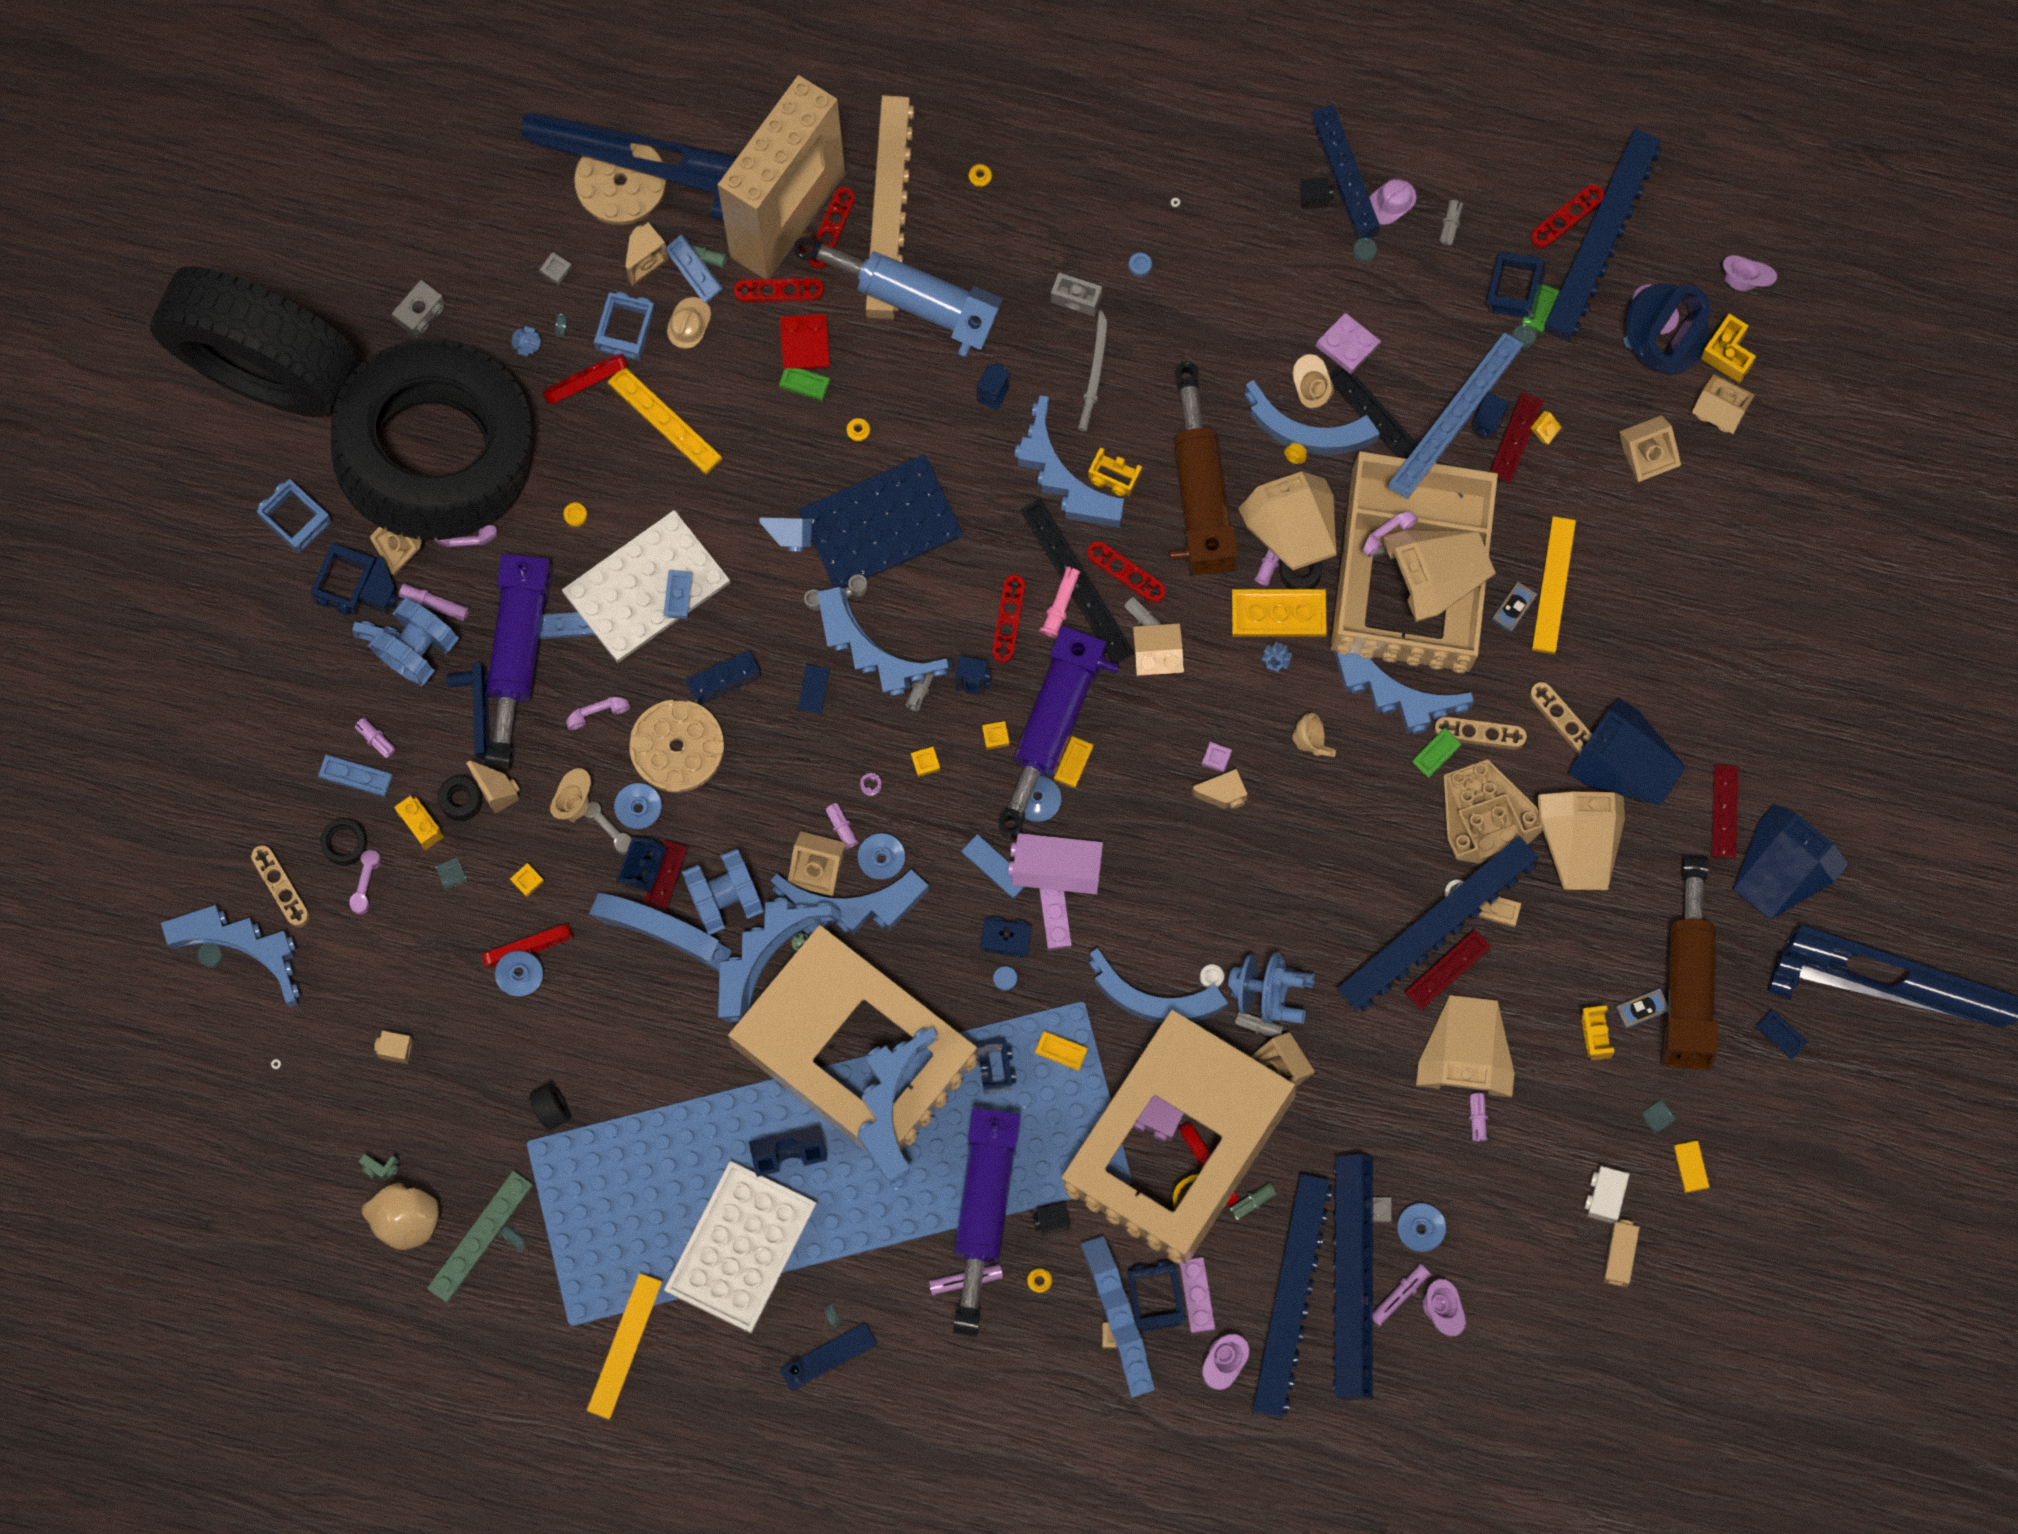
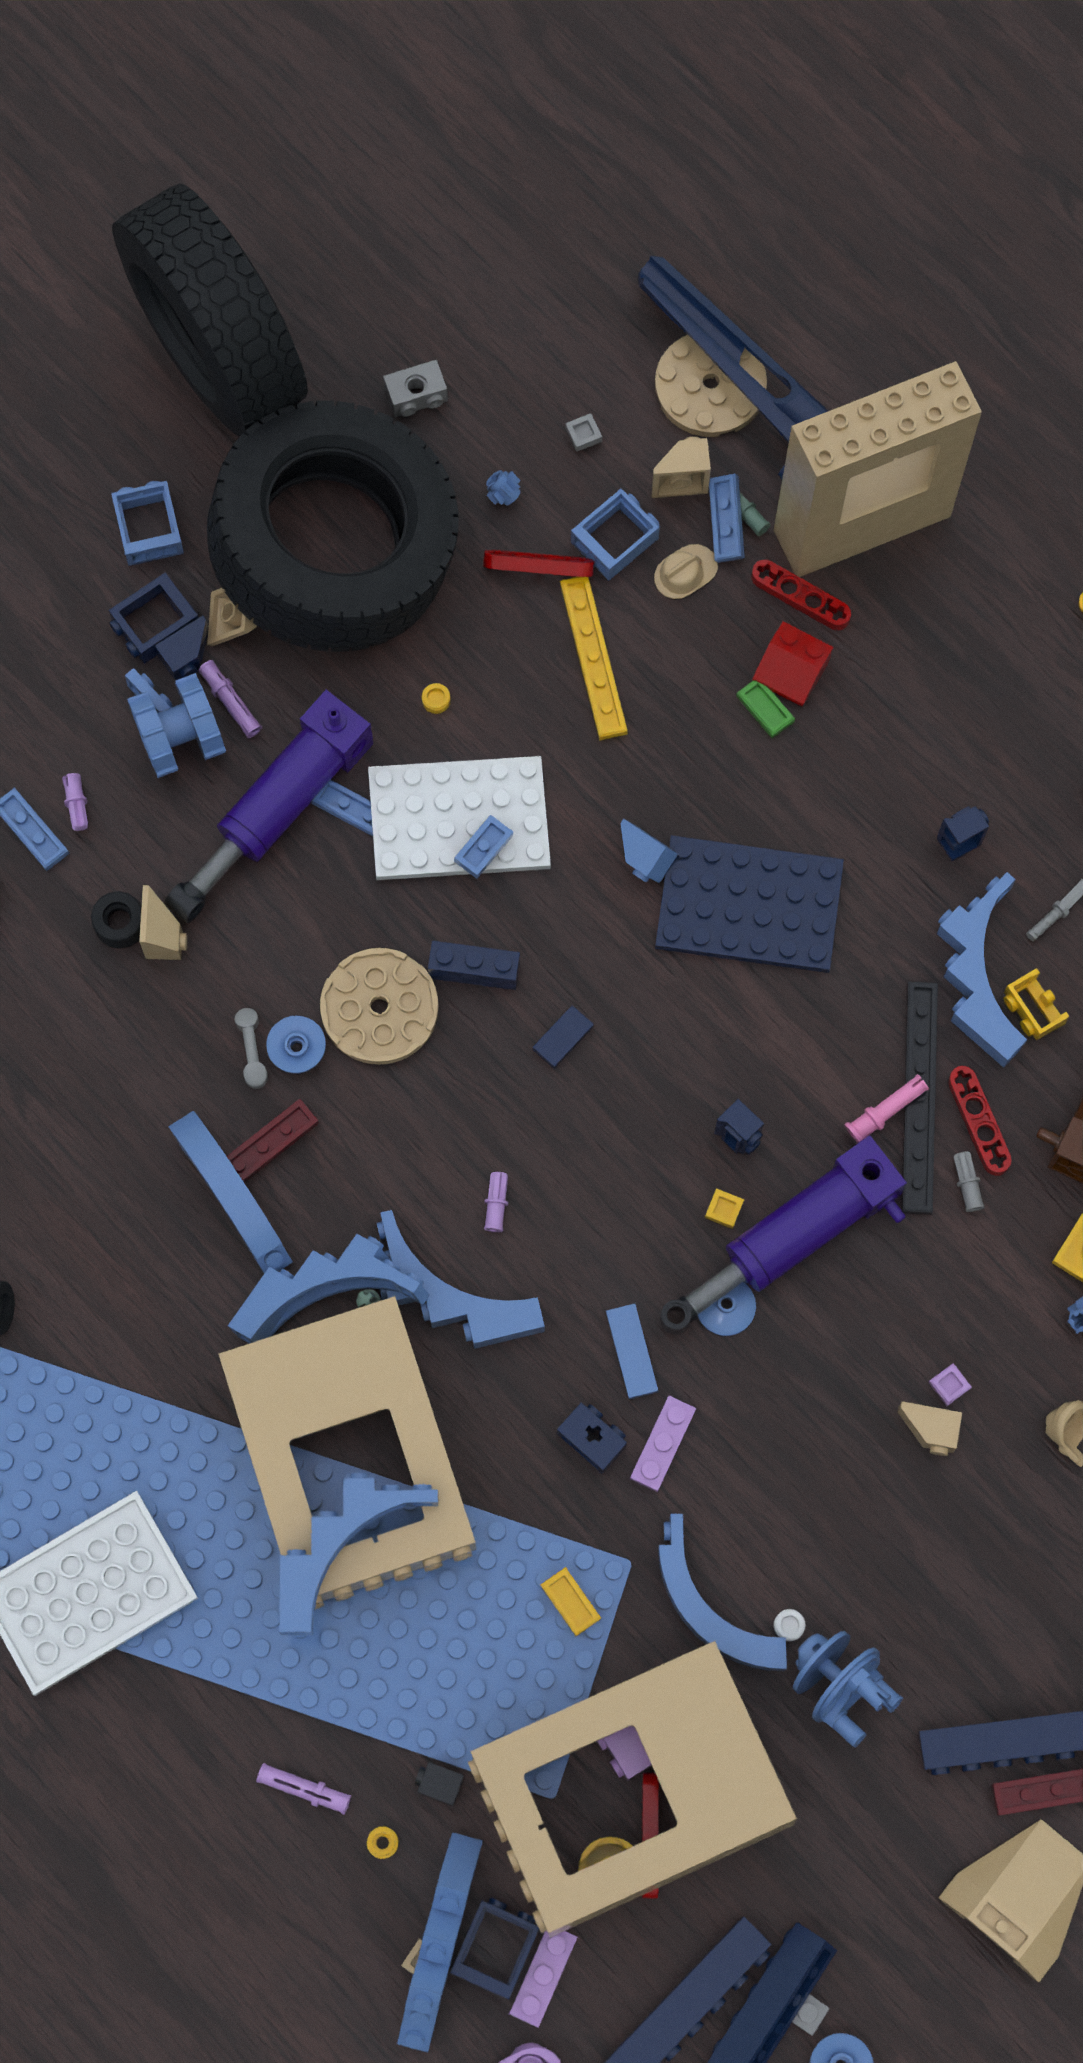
camera: 30 degrees right, 0 degrees up
(419, 822) = (59, 918): yellow window -> none
(451, 873) = (58, 993): clear light blue tile -> none
(478, 678) = (204, 835): dark blue piece -> none
(484, 536) = (328, 663): lavender bar -> none
(522, 983) = (44, 1149): medium blue dish -> none
(527, 880) = (129, 1049): yellow plate -> none
(531, 944) = (83, 1120): red beam -> none
(561, 325) = (550, 493): clear light blue tile -> none
(571, 796) = (232, 992): tan piece -> none
(617, 705) = (294, 913): lavender bar -> none
(637, 860) = (254, 1104): dark blue window -> none
(722, 891) = (321, 1193): medium blue piece -> none
(801, 1144) = (186, 1509): dark blue arch -> none
(816, 863) = (442, 1225): tan slope -> none
(828, 1357) = (101, 1776): dark blue piece -> none
(831, 228) = (897, 561): red beam -> none
(833, 1316) = (135, 1734): clear light blue tile -> none
(843, 630) = (635, 992): medium blue arch -> none
(857, 587) = (626, 944): light grey bar -> none
(858, 436) = (786, 798): yellow plate -> none
(873, 777) = (564, 1172): lavender bush -> none
(881, 845) = (516, 1247): medium blue dish -> none
(889, 189) = (972, 578): tan brick -> none
(914, 292) = (942, 680): medium blue piece -> none
(918, 692) = (676, 1106): light grey axle -> none
(925, 761) = (630, 1189): yellow plate -> none
(983, 1206) = (371, 1722): dark purple piece -> none
(985, 1067) = (476, 1568): dark blue window -> none
(1005, 978) = (562, 1481): medium blue tile -> none
(1008, 619) = (823, 1094): red beam -> none
(1056, 863) = (698, 1391): lavender brick -> none
(1073, 762) = (790, 1290): yellow tile -> none
(1158, 649) = (960, 1226): tan slope -> none
(1253, 1201) = (673, 1909): sand green axle -> none
(1257, 1024) = (804, 1710): light grey axle -> none
(1285, 1058) = (805, 1773): tan slope -> none
(1478, 1117) = (986, 1980): lavender axle -> none

